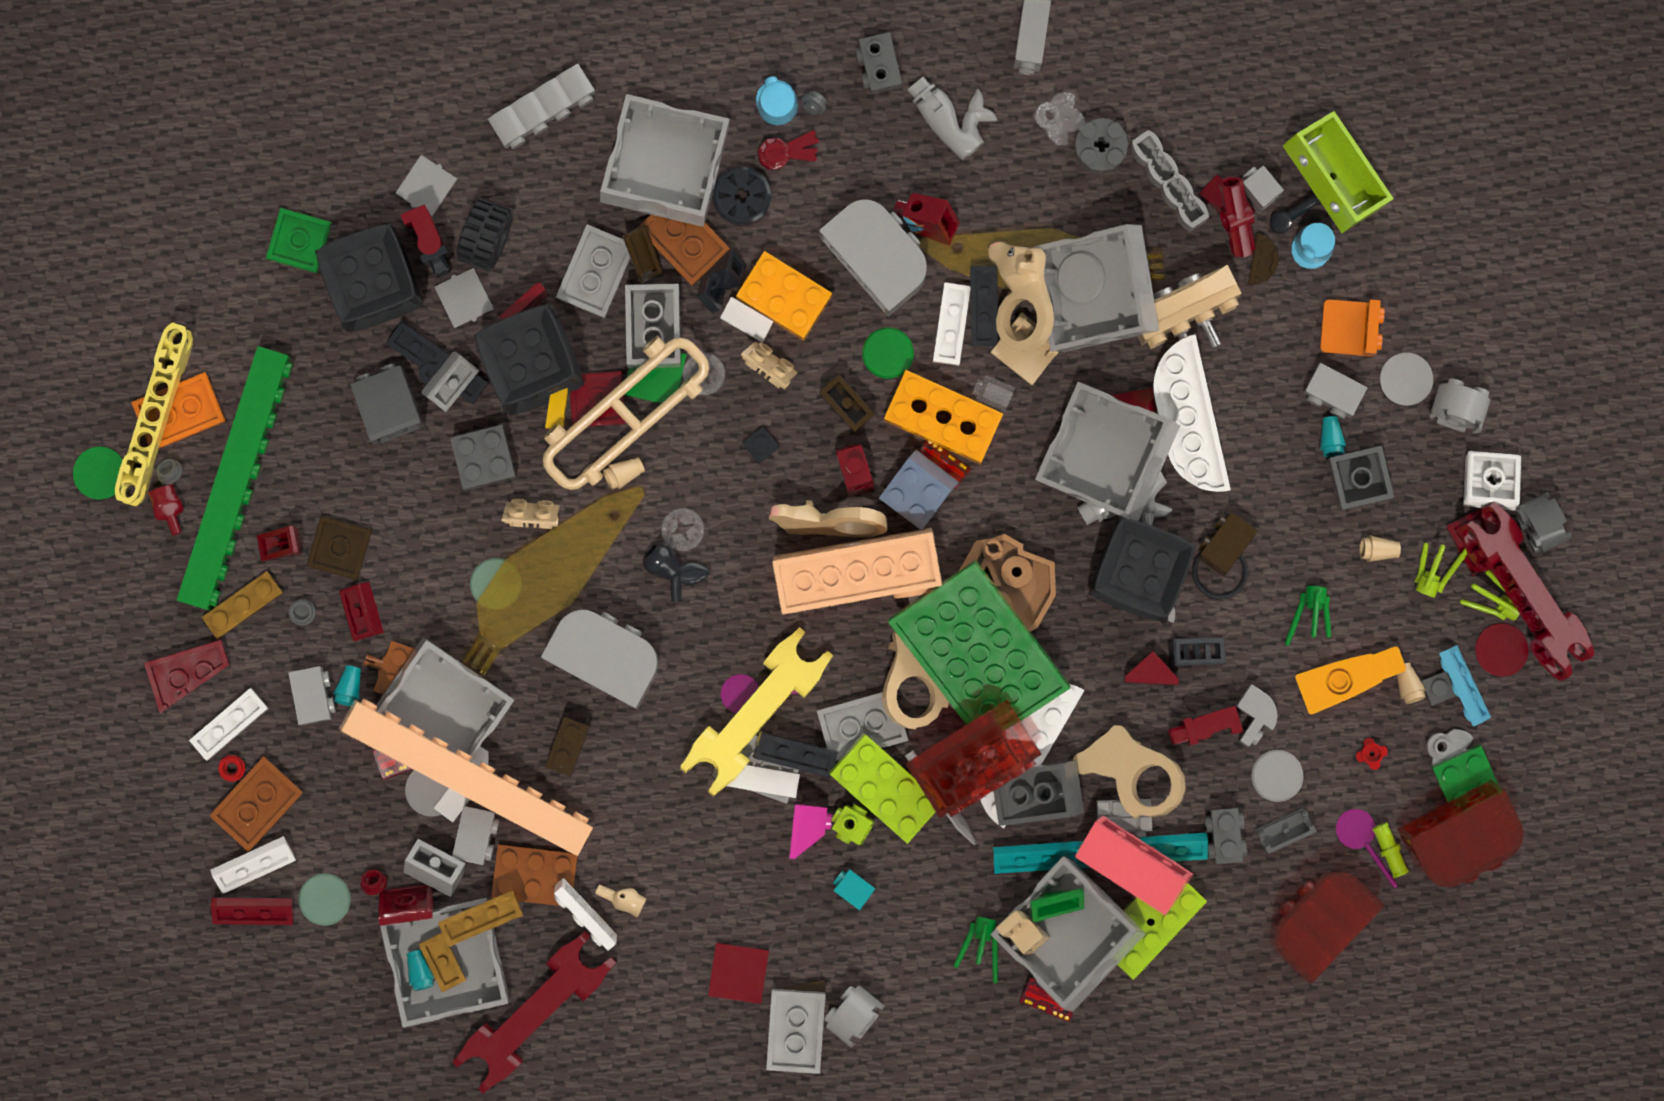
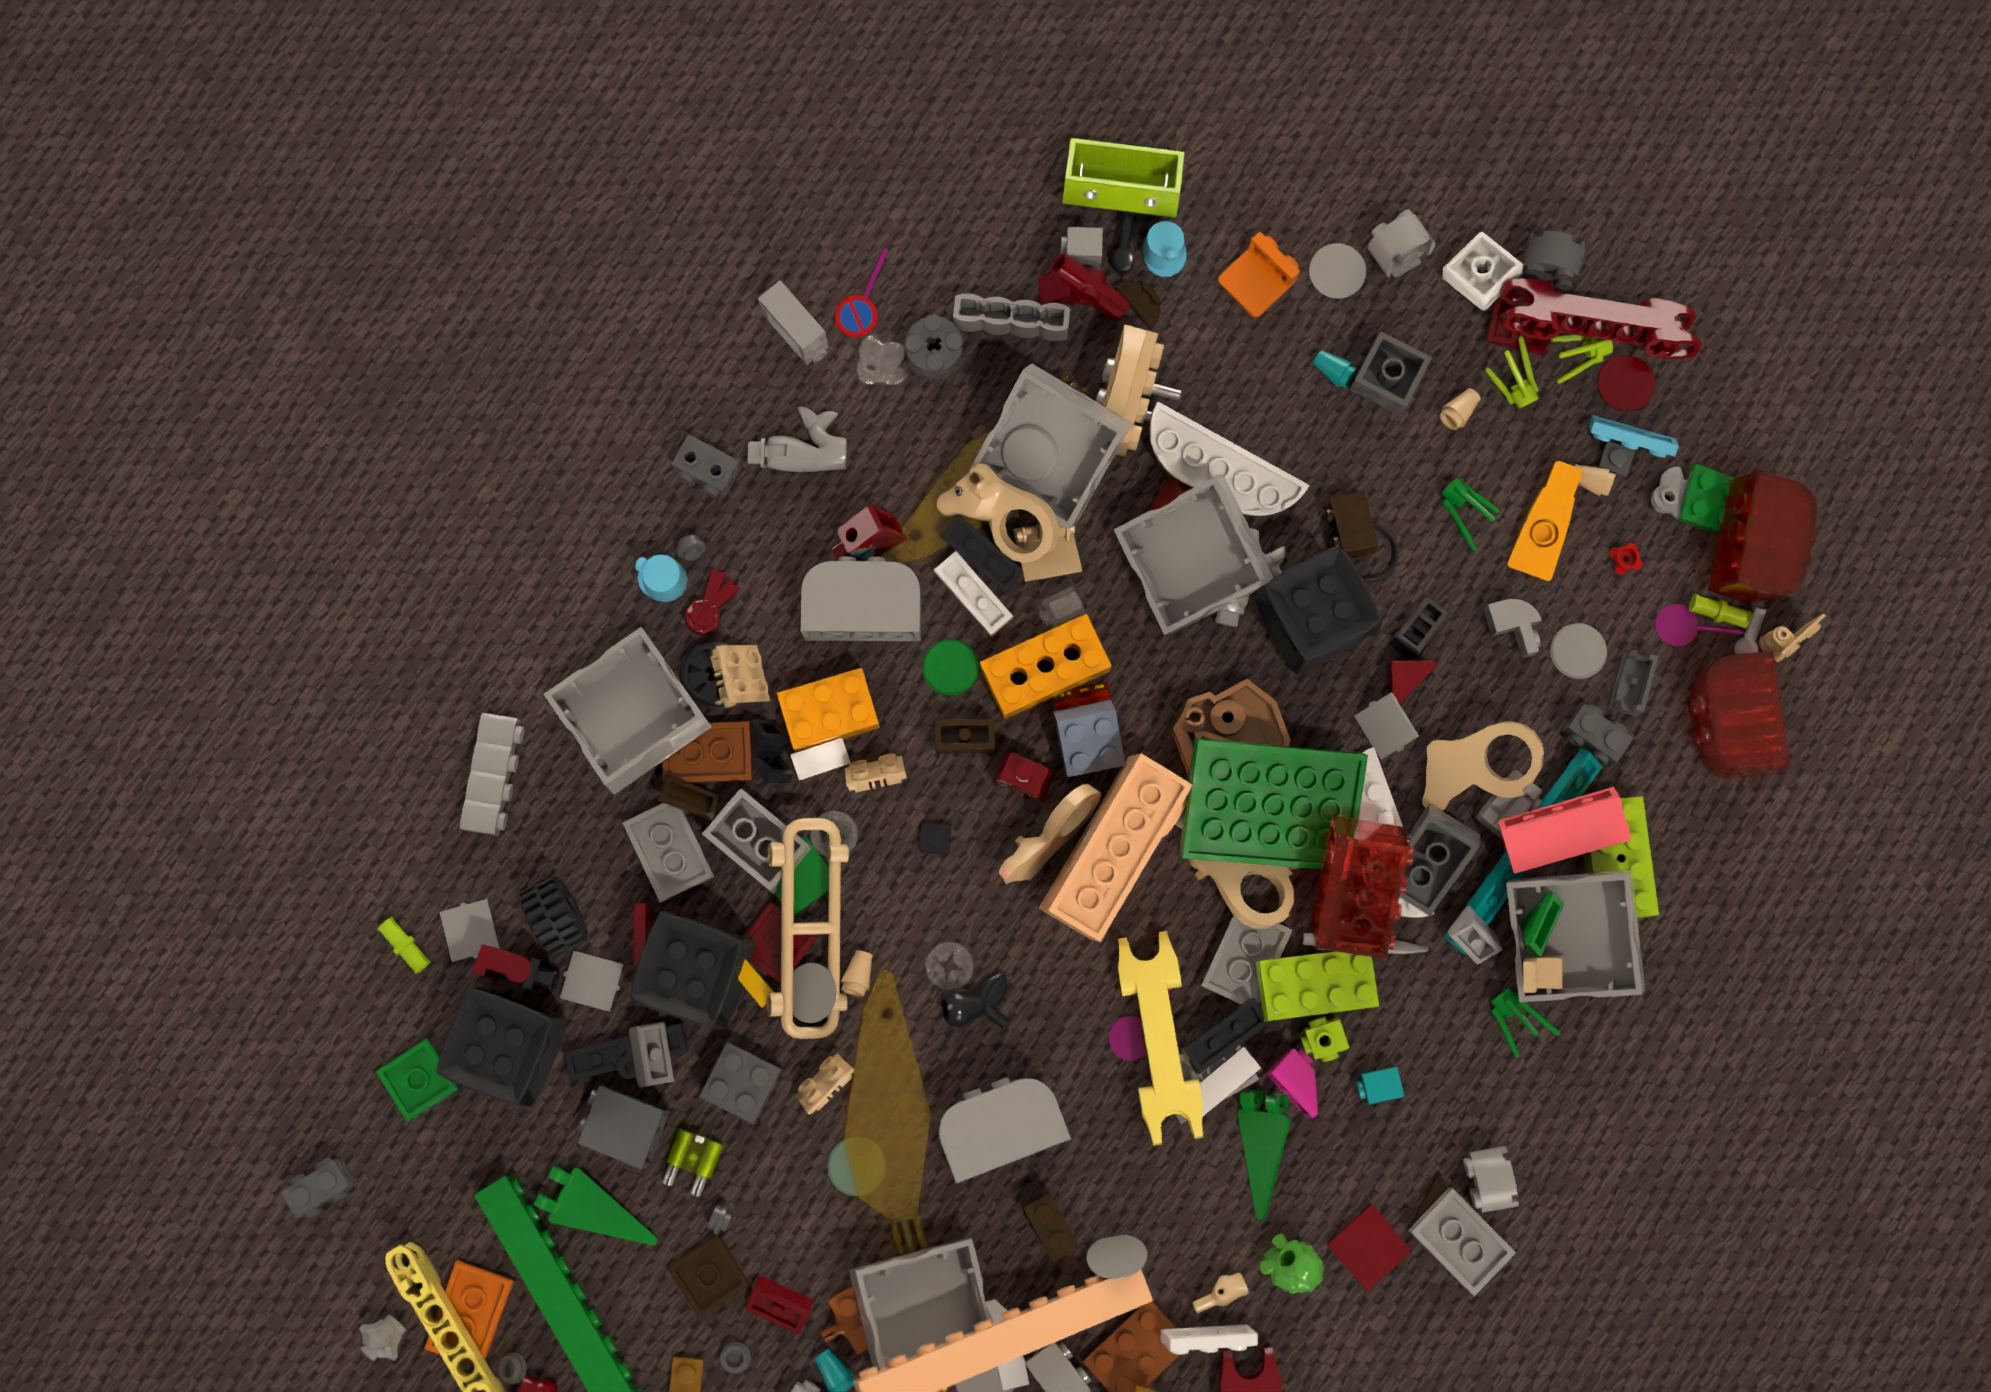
camera: 50 degrees left, 5 degrees down
(114, 368) = (382, 1338): none -> light grey rock
(179, 241) = (327, 1183): none -> dark grey brick
(279, 543) = (659, 1325): dark red slope -> none
(315, 430) = (590, 1208): none -> green flag
(378, 151) = (404, 945): none -> lime pin
(382, 522) = (720, 1219): none -> dark grey plate
(409, 468) = (695, 1155): none -> clear neon green piece
(584, 453) = (813, 992): none -> light grey piece
(585, 807) = (1117, 1256): none -> light grey piece
(681, 930) = (1292, 1265): none -> bright green animal
(746, 842) = (1263, 1143): none -> green flag
(756, 215) = (741, 674): none -> tan hinge
(1011, 867) = (1474, 936): none -> light grey slope
(1038, 998) = (1604, 1008): slope -> none
(1080, 71) = (856, 313): none -> piece
(1105, 686) = (1386, 725): none -> light grey piece
(1204, 726) = (1493, 672): dark red hips -> none
(1334, 391) = (1299, 334): light grey brick -> none
(1383, 889) = (1748, 642): none -> light grey bar
(1400, 911) = (1784, 643): none -> tan hinge

